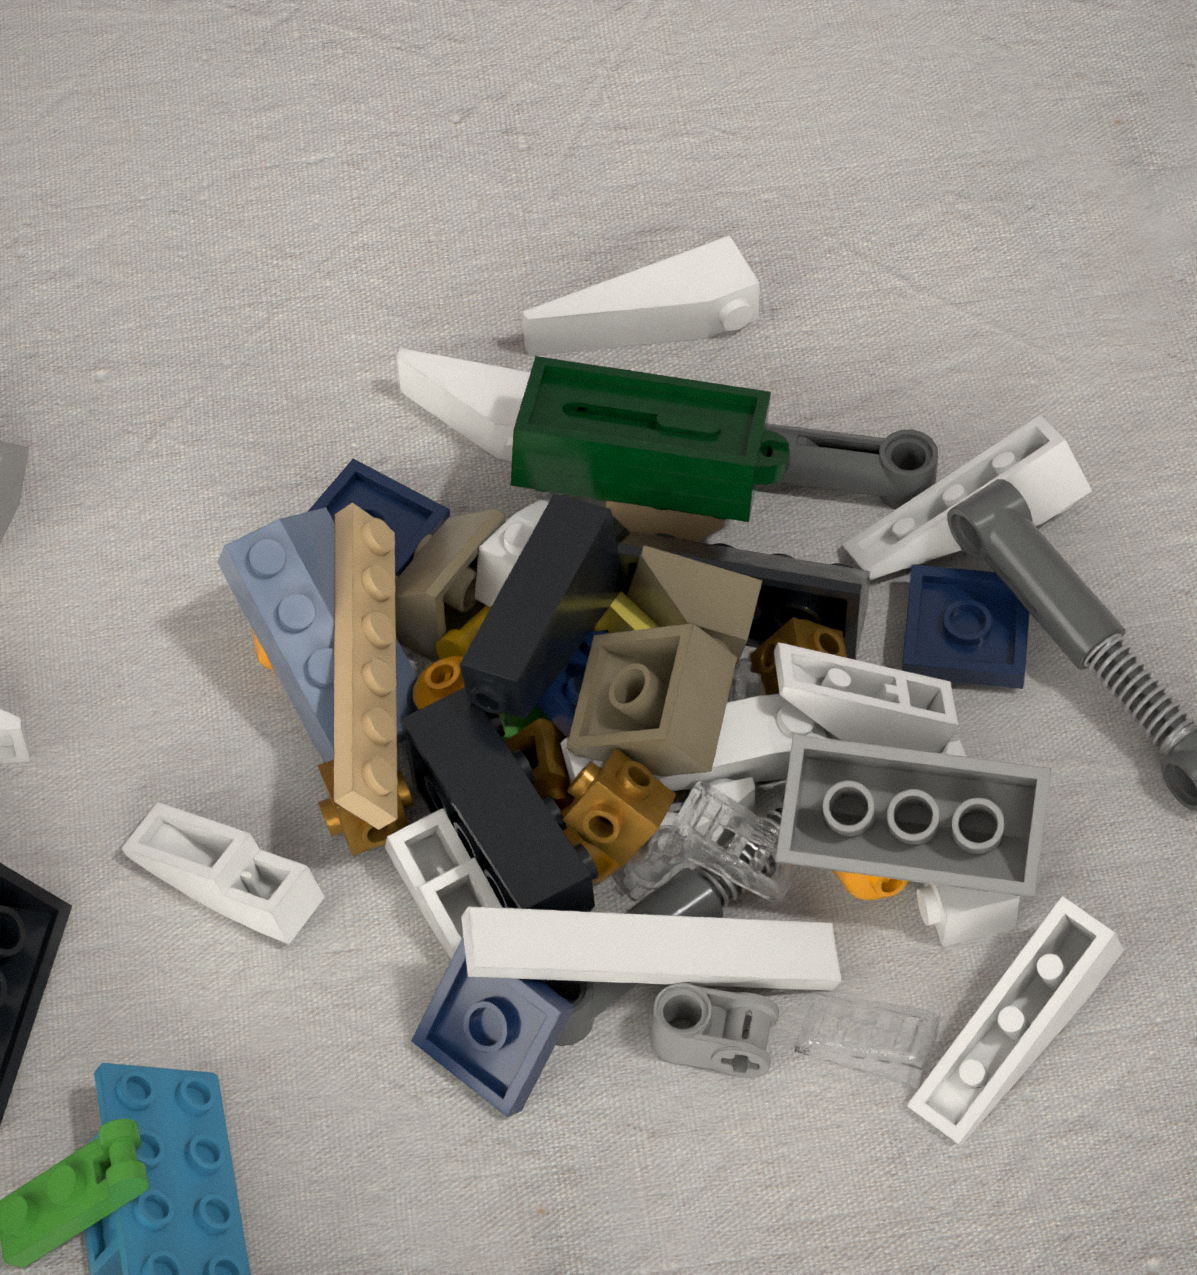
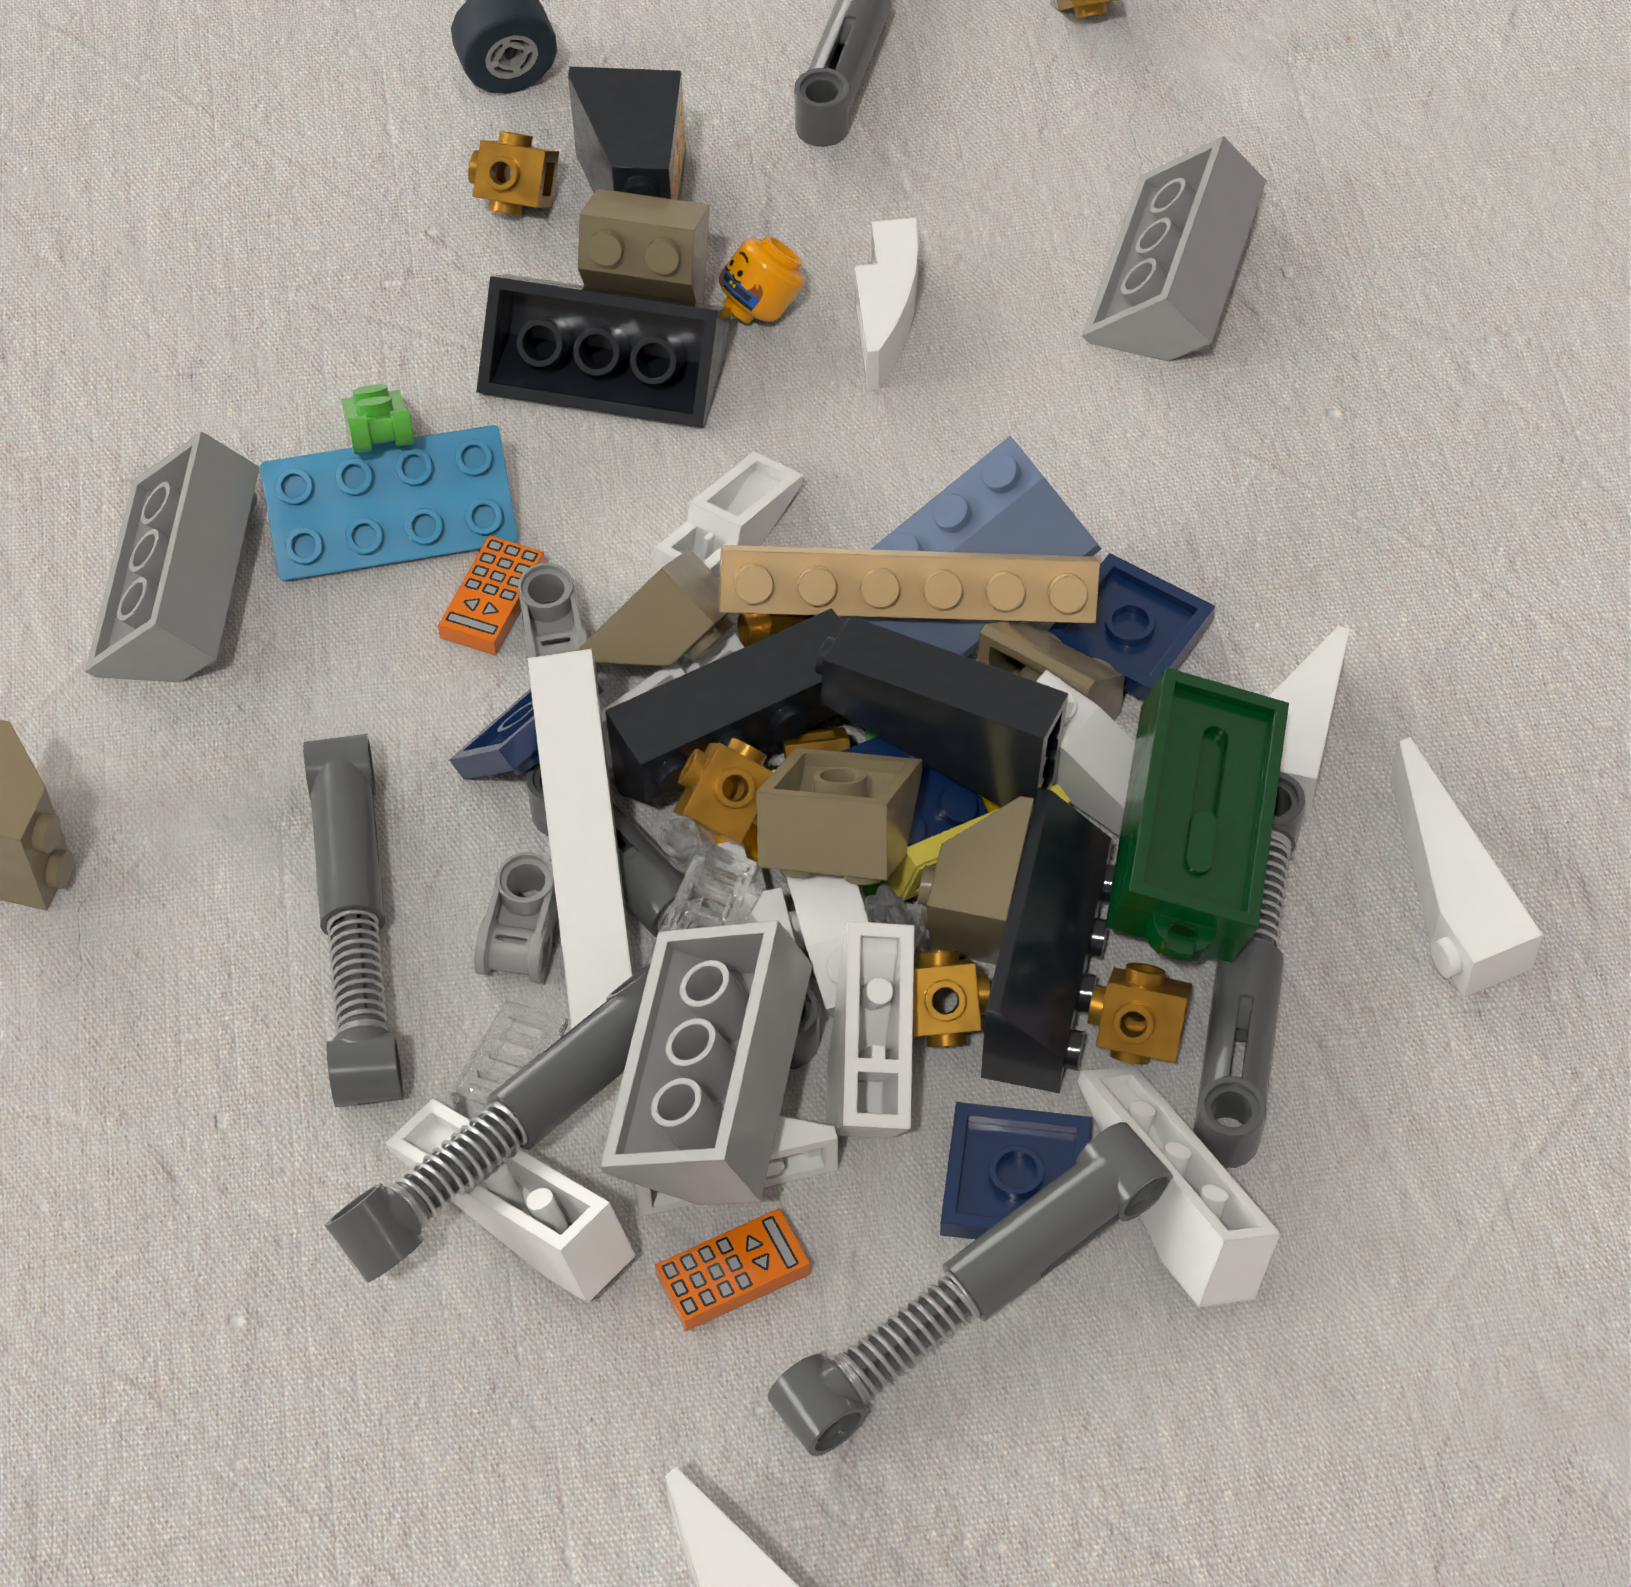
camera: 90 degrees right, 0 degrees up
(290, 1091) = (488, 596): none -> orange tile
(352, 1022) = (551, 626): none -> light grey piece
(373, 900) = (664, 618): none -> dark tan slope
(544, 1208) = (351, 912): none -> dark grey piece
(810, 518) = (1145, 1036): none -> pearl gold brick
(1078, 850) = (732, 1269): none -> orange tile
(1090, 1092) = (387, 1221): none -> dark grey piece

